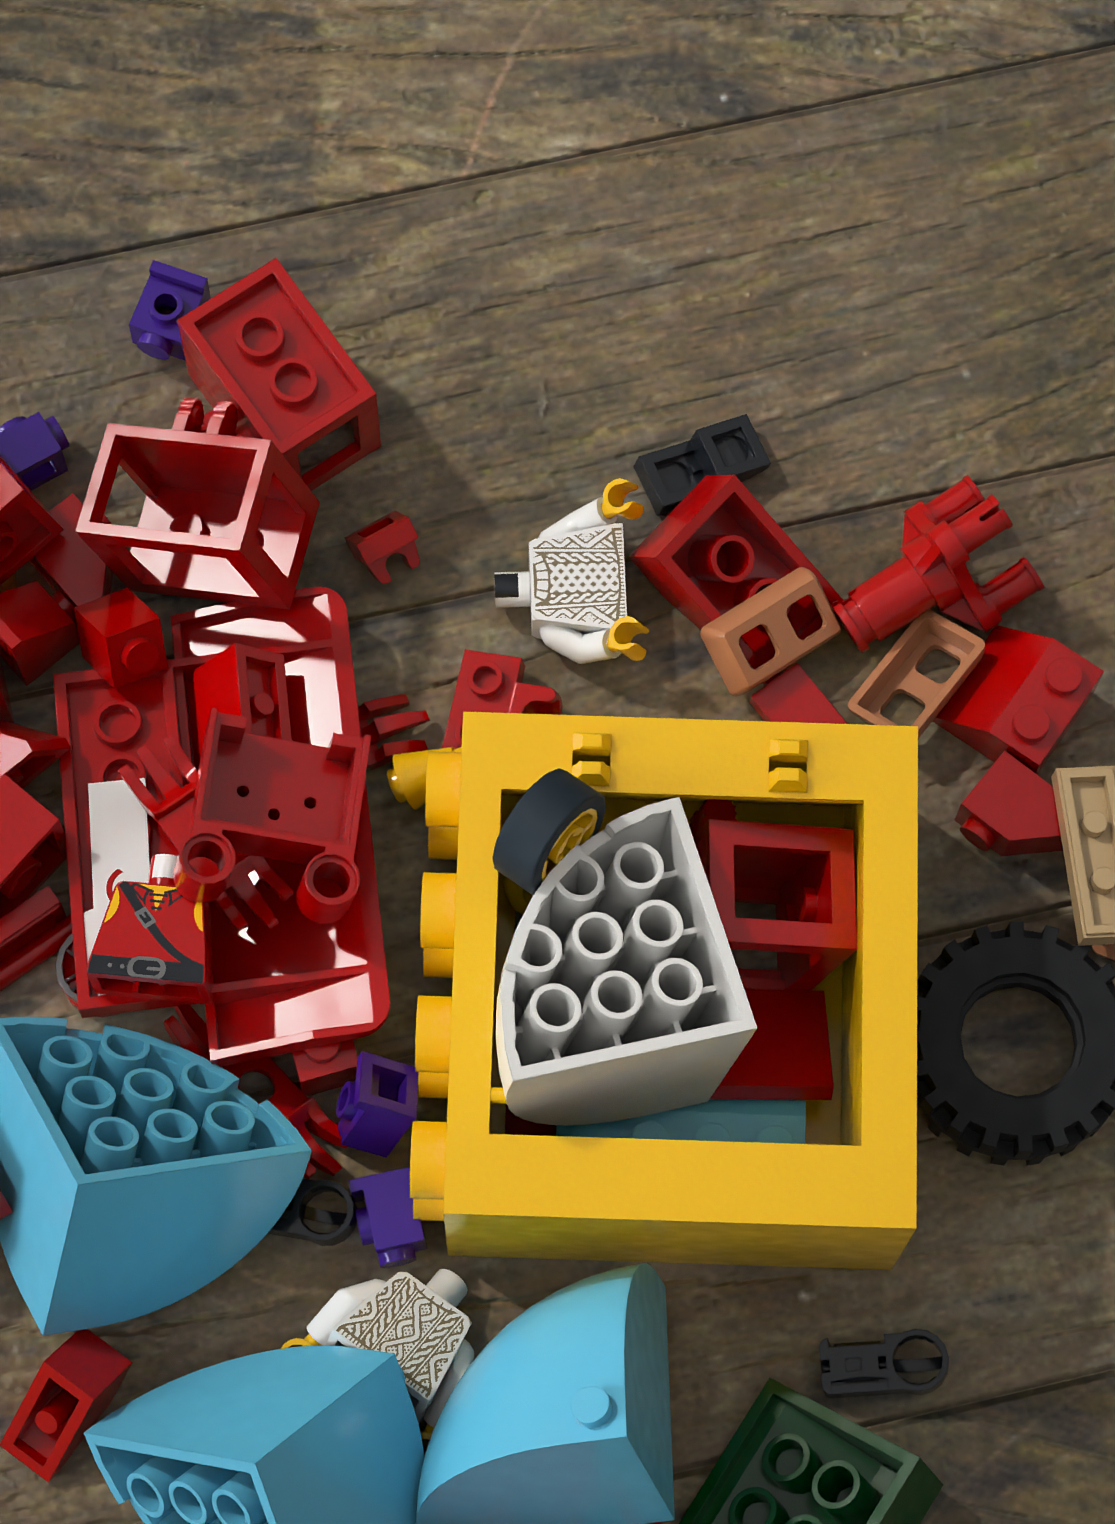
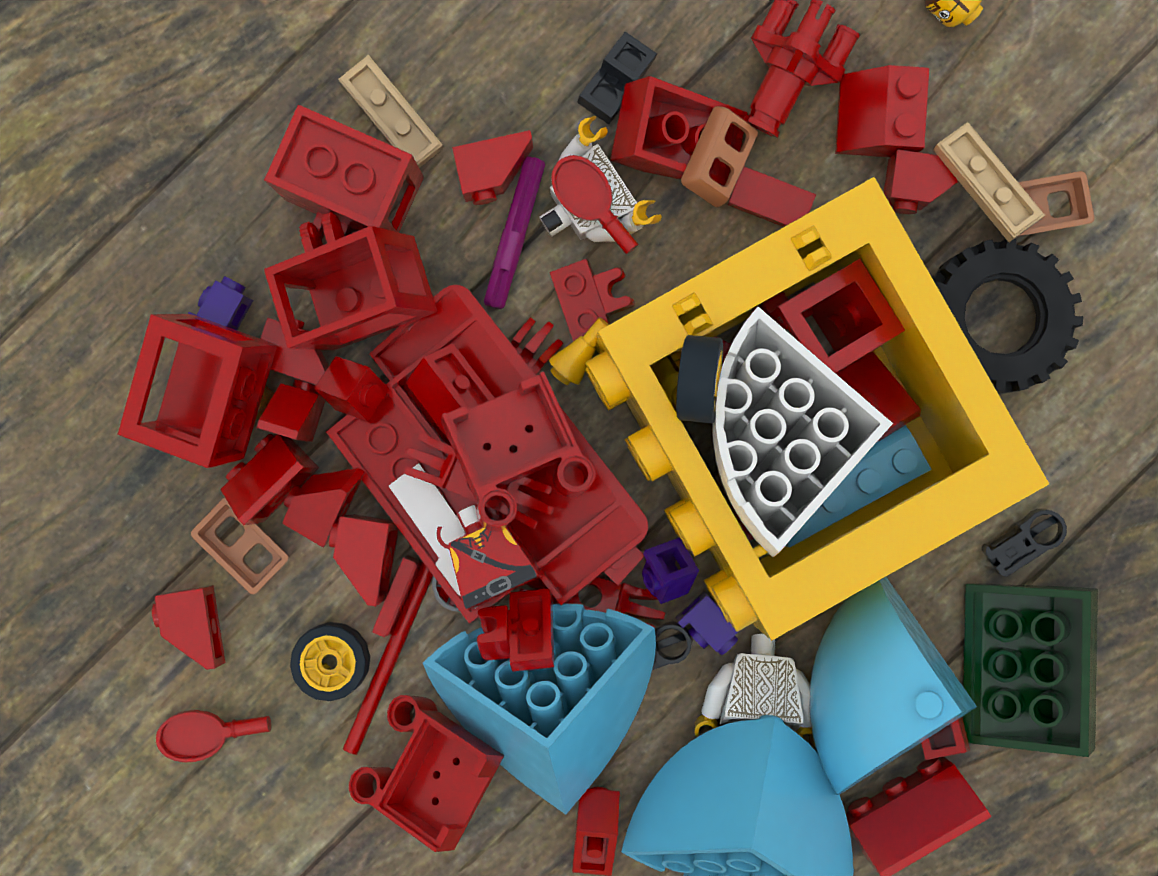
camera: 25 degrees left, 15 degrees up
(134, 1054) = (521, 632): none -> red plate
(171, 289) = (246, 155): dark purple brick -> none
(380, 540) = (462, 234): red tile -> none
(389, 343) = (390, 111): none -> tan tile
(450, 577) = (514, 233): none -> magenta axle
(473, 476) = (490, 165): none -> red slope
(569, 575) = (587, 195): none -> red piece
(899, 672) = (804, 137): nougat piece -> none

